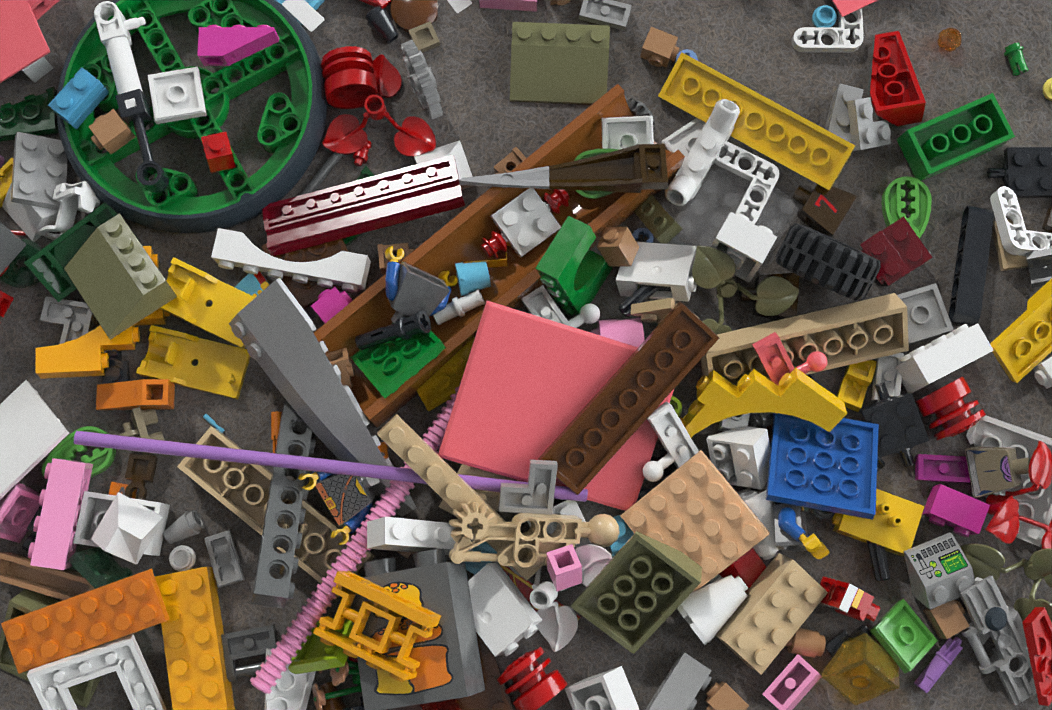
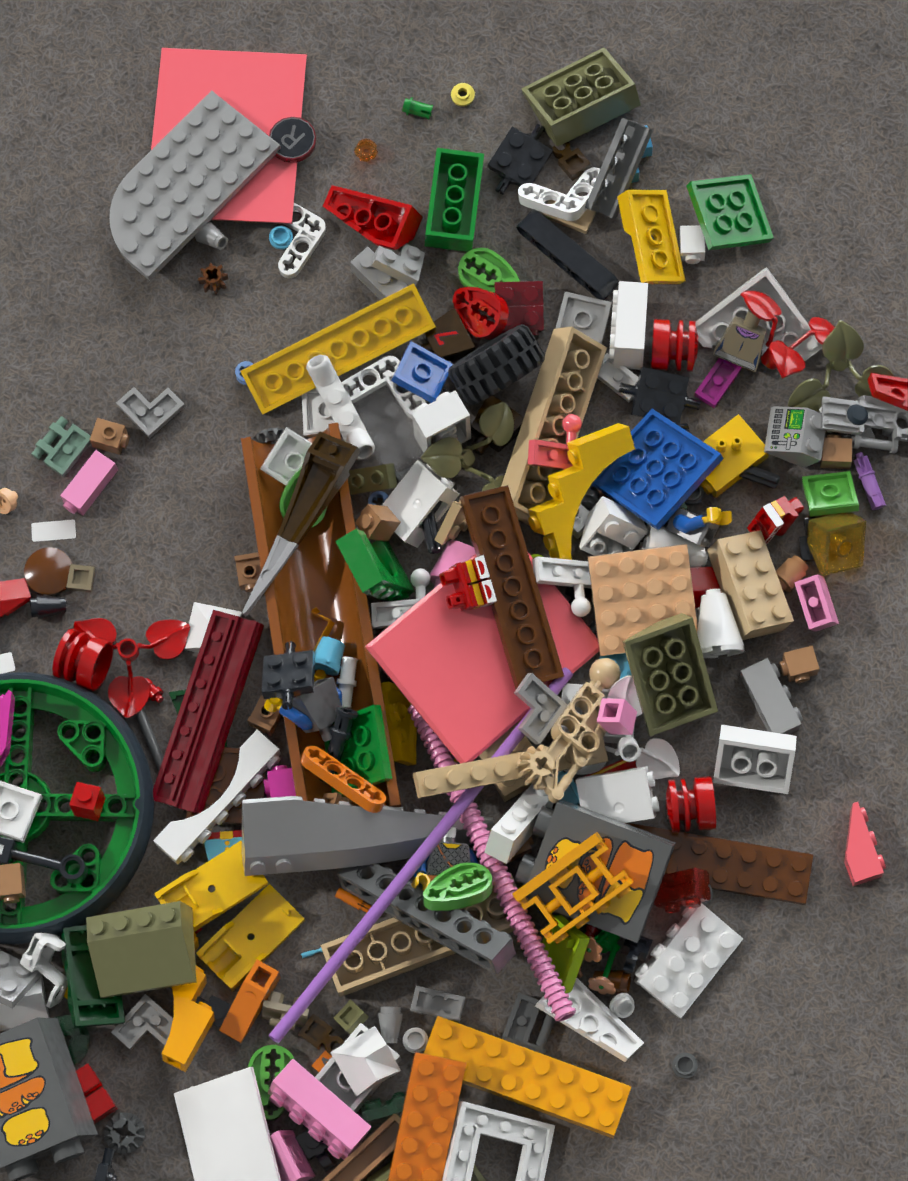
camera: 55 degrees left, 5 degrees down
(170, 490) = (351, 1016): none -> olive plate
(316, 531) = (458, 887): none -> bright green piece
(365, 357) = (320, 762): none -> orange beam
(421, 79) = (127, 597): light grey gear -> none
(423, 250) = (288, 675): none -> black plate
(525, 222) = (308, 586): white plate -> none
(559, 63) = (181, 478): olive slope -> none
(612, 350) = (465, 574): none -> red hips
(659, 48) = (221, 387): medium nougat brick -> none
(779, 202) = (421, 372): none -> plate
(855, 383) = (607, 406): yellow slope -> none
(859, 213) = (485, 301): none -> red piece
(955, 510) = (756, 392): dark pink brick -> none

